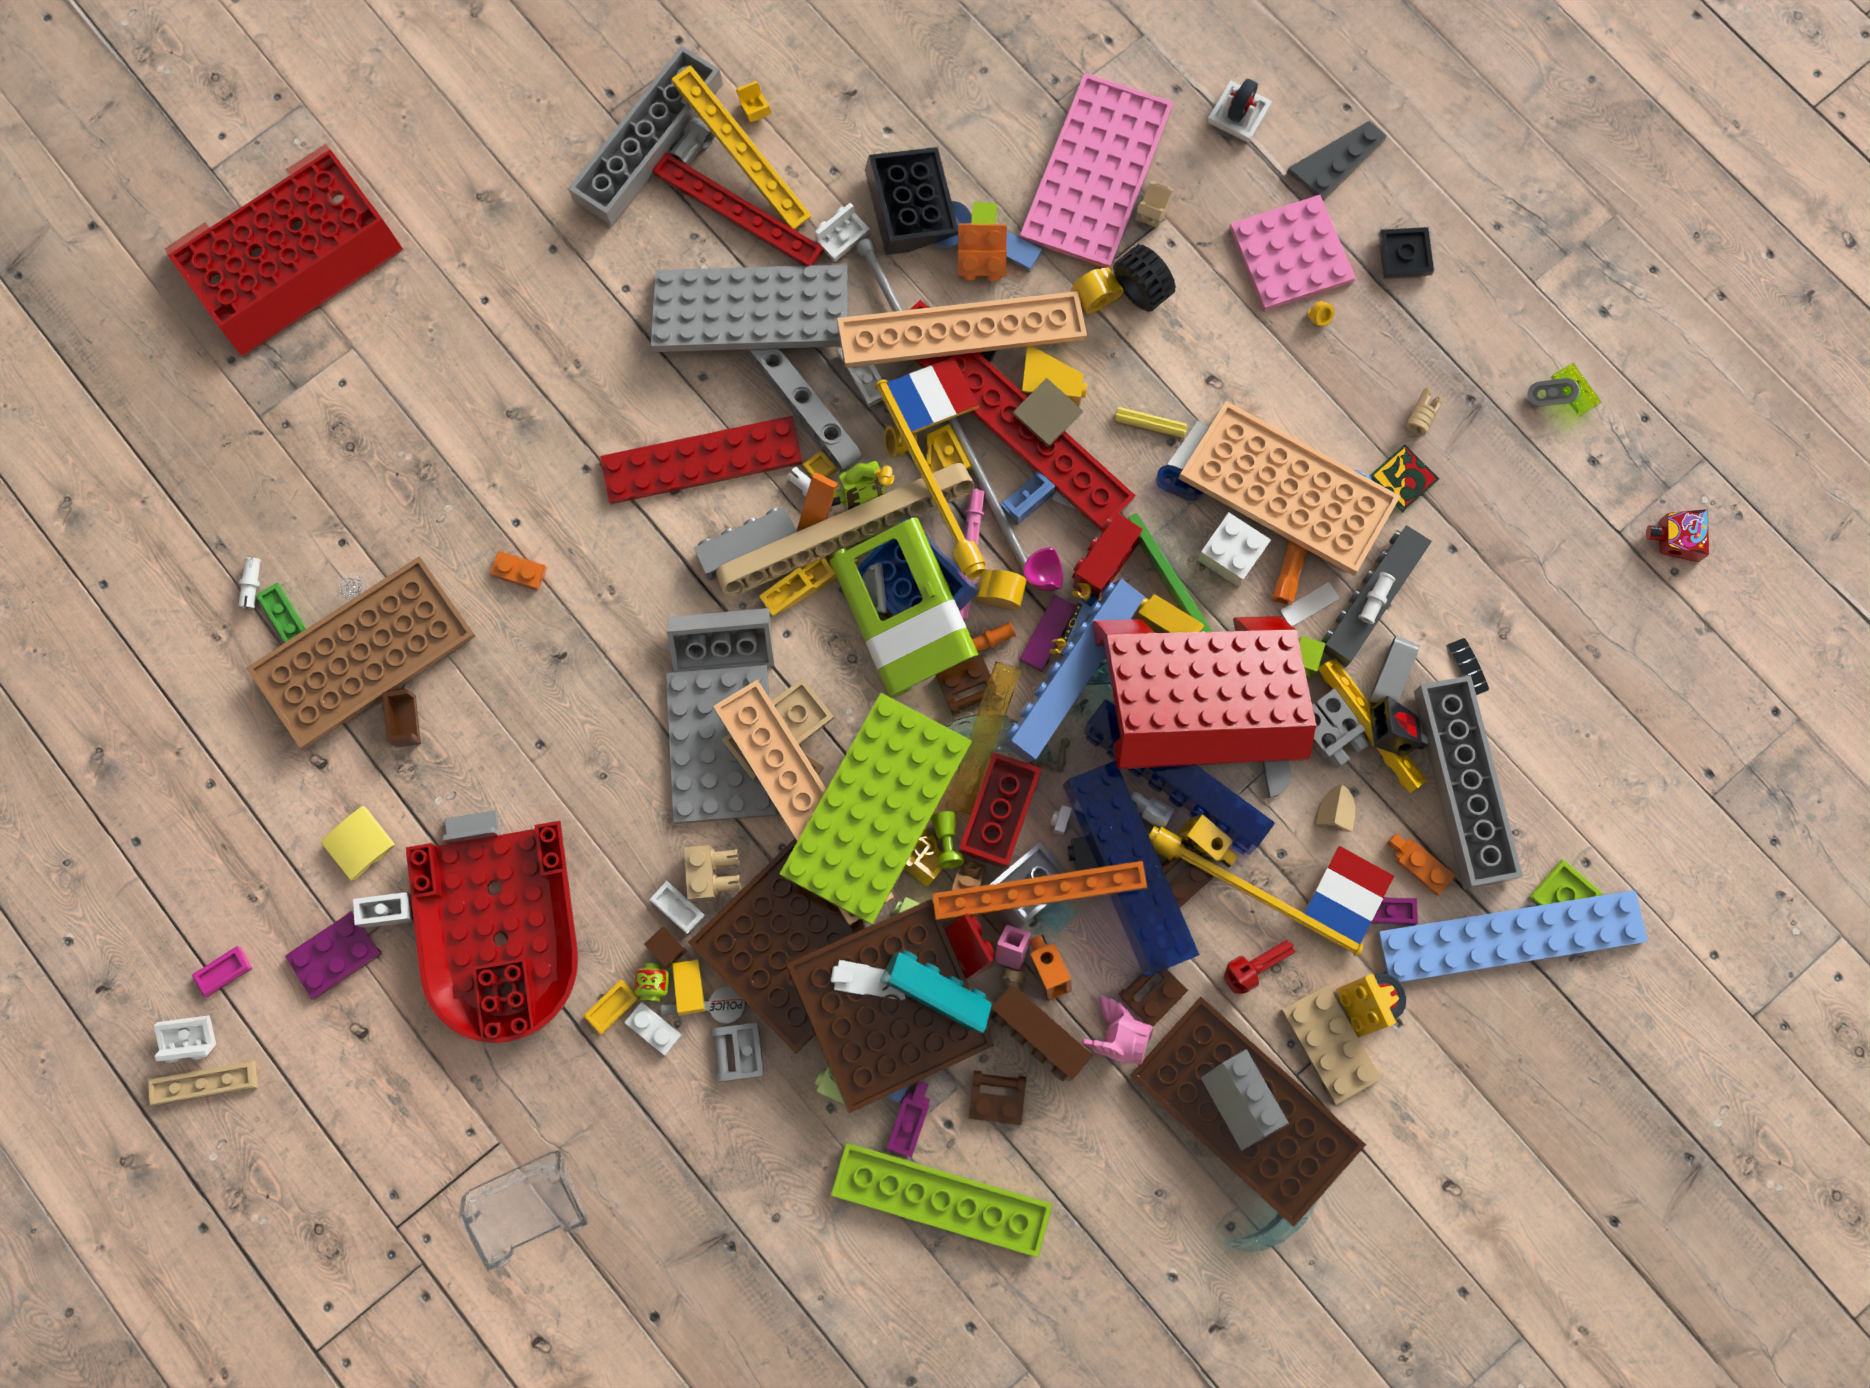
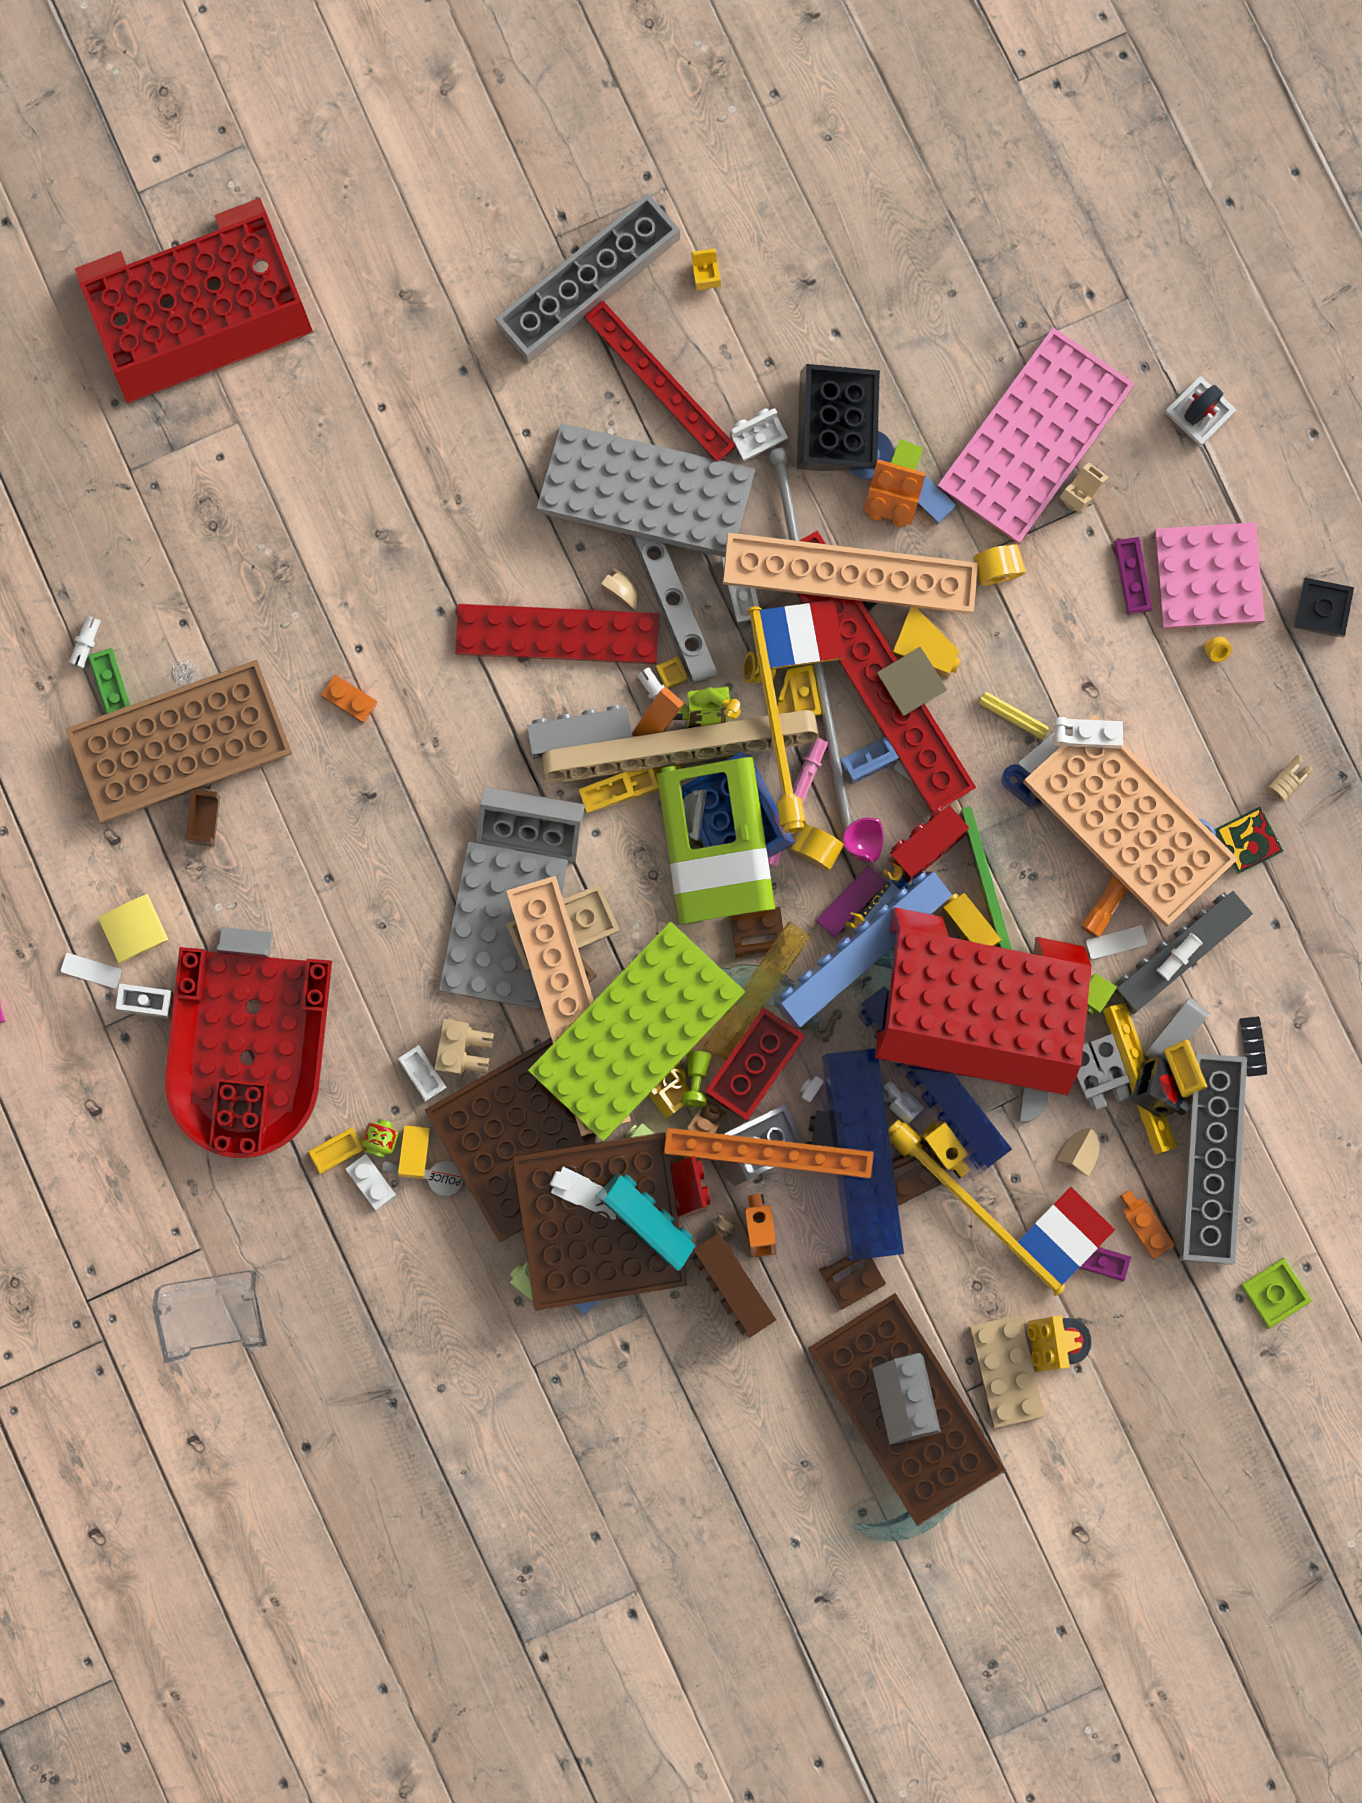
camera: 15 degrees right, 5 degrees up
(325, 895) = (91, 970): none -> white sticker
(332, 955) = (85, 1030): magenta plate -> none
(665, 947) = (402, 1108): reddish brown panel -> none
(694, 139) = (637, 291): light grey piece -> none
(741, 148) = (679, 320): yellow plate -> none
(746, 1052) = (453, 1226): light grey plate -> none
(750, 403) = (621, 588): none -> tan brick
(910, 1121) = (589, 1333): magenta hinge -> none
(942, 1199) = (600, 1413): lime plate -> none
(994, 637) = (795, 892): orange pin -> none
(997, 1107) = (675, 1343): reddish brown plate -> none
(1013, 947) = (730, 1198): bright pink brick -> none
(1058, 915) = (782, 1180): clear light blue panel -> none
(1124, 1038) = (812, 1310): bright pink helmet -> none
(1144, 277) = (1048, 567): black tyre -> none
(1222, 270) = (1132, 576): none -> magenta tile
(1226, 417) = (1088, 733): none -> white plate
(1233, 550) = (1056, 868): white brick -> none
(1247, 971) = (941, 1282): red piece -> none
(1336, 161) = (1281, 491): dark grey wing -> none
(1415, 701) = (1185, 1068): none -> yellow tile
(1512, 936) = (1212, 1318): light blue plate -> none

